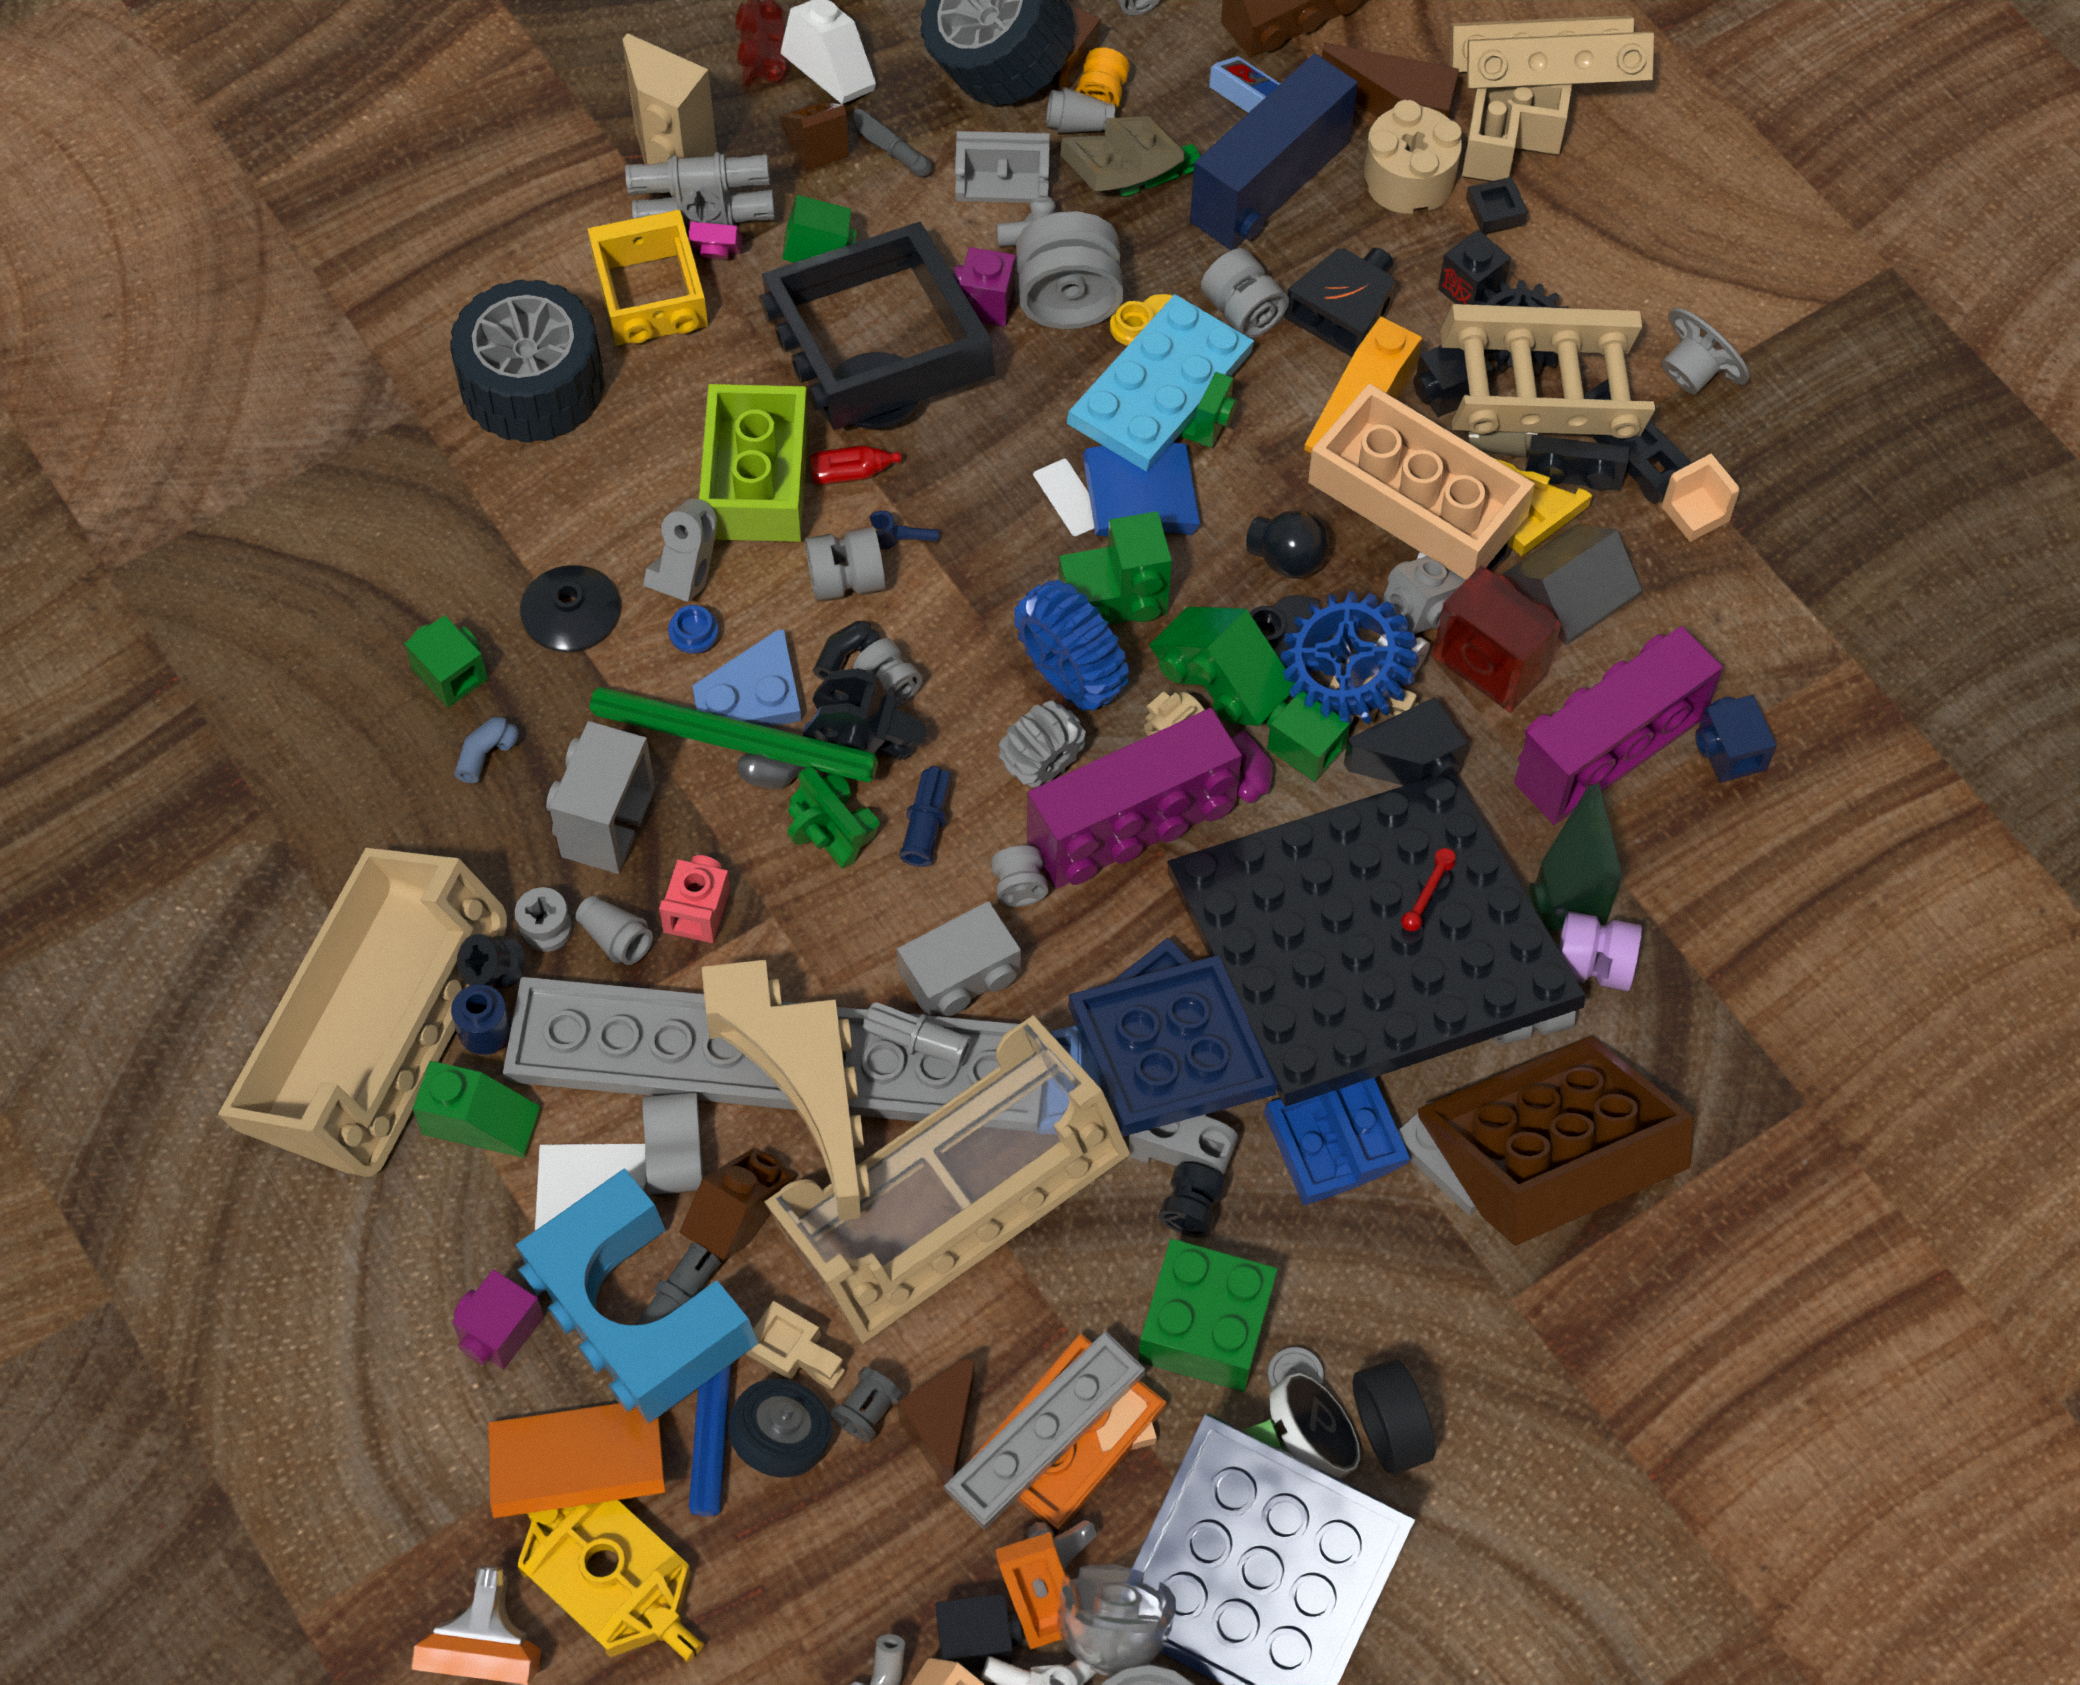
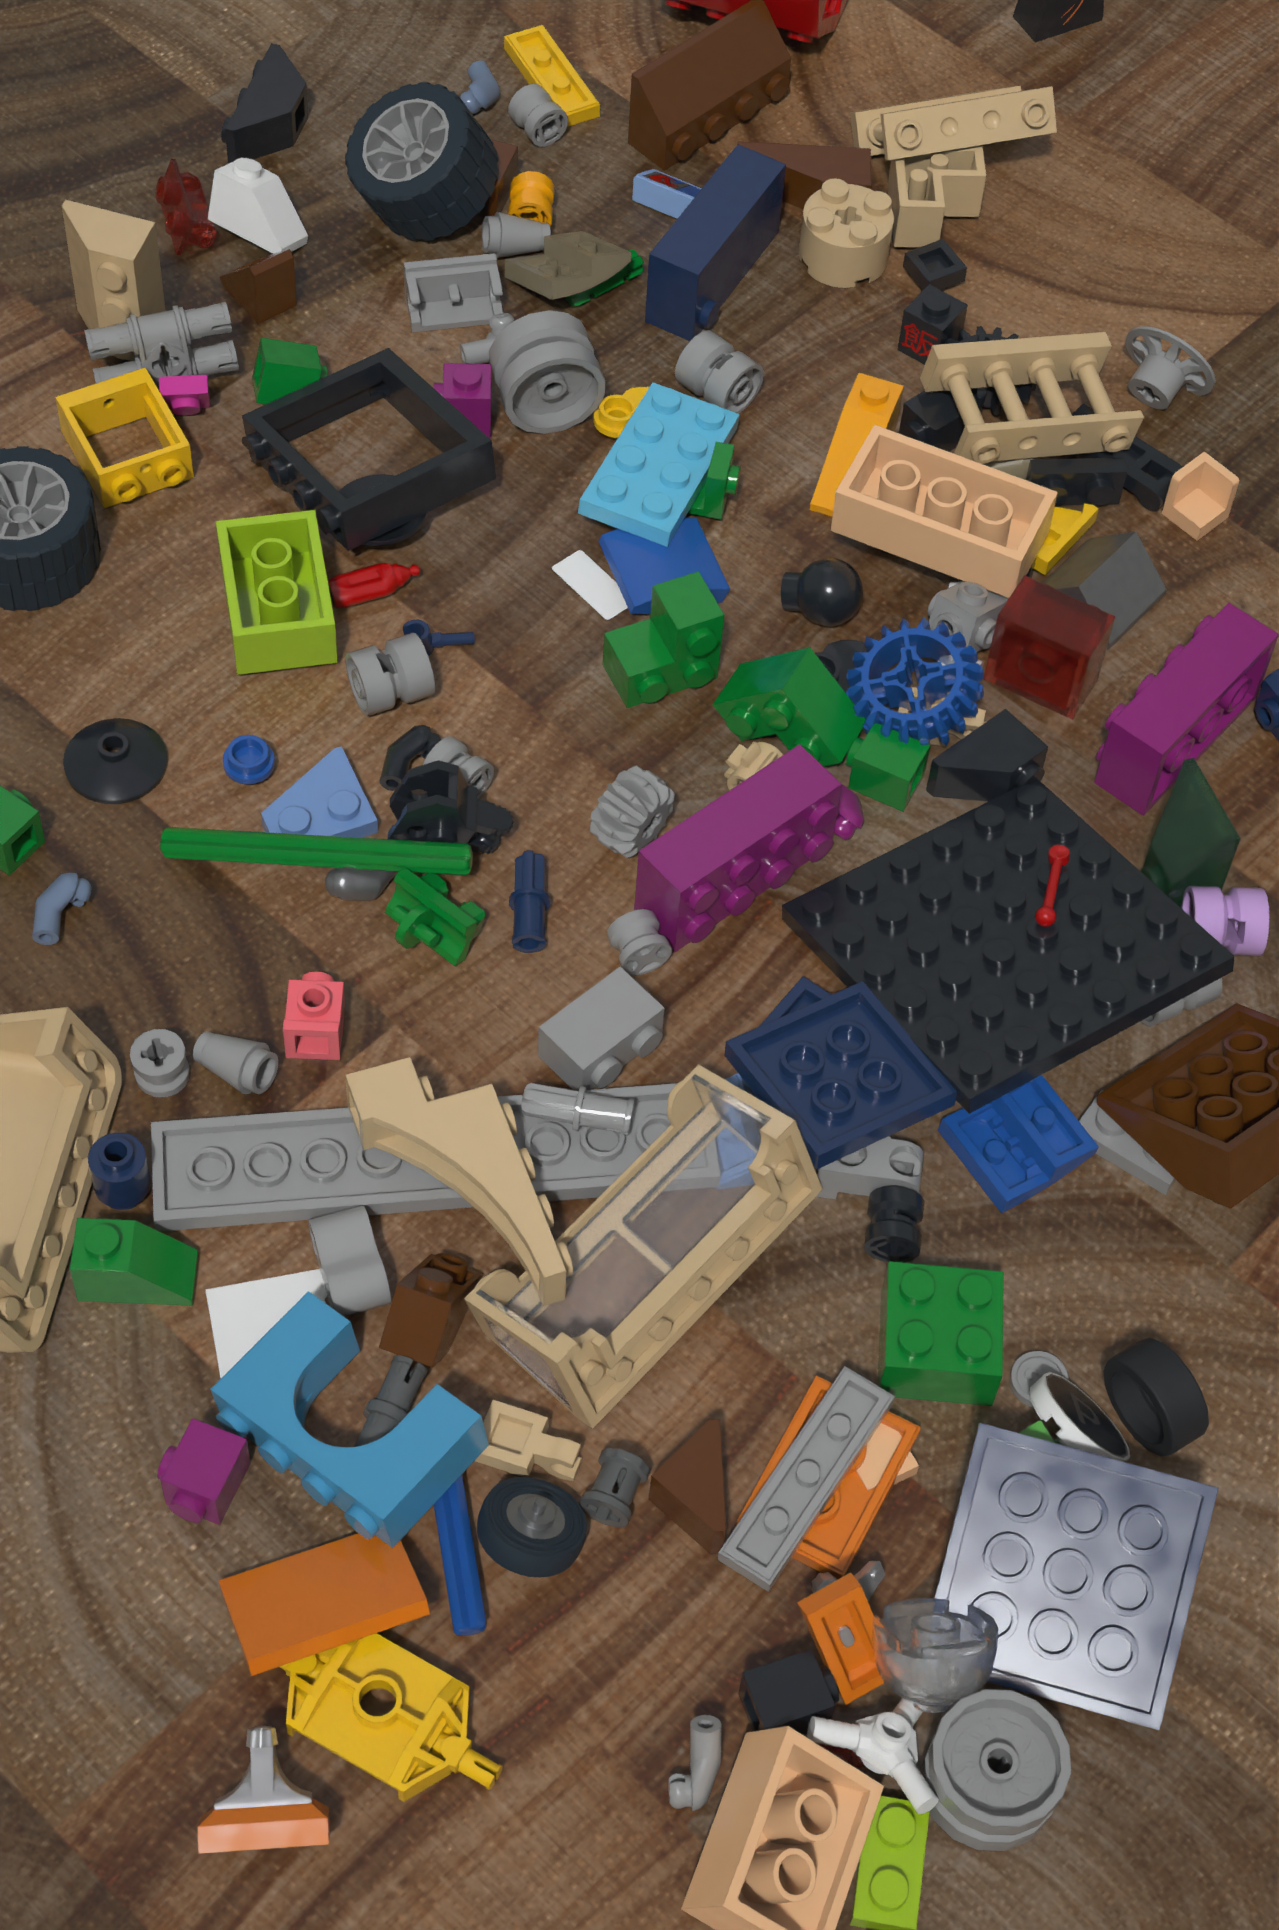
camera: 15 degrees left, 5 degrees down
(491, 961) = (132, 1113): black wheel -> none
(604, 782) = (195, 929): light grey piece -> none
(687, 551) = (229, 683): light grey leg -> none
(891, 144) = (340, 289): dark grey piece -> none
(1071, 644) = (638, 712): blue gear -> none
(1343, 297) = (813, 367): black torso -> none

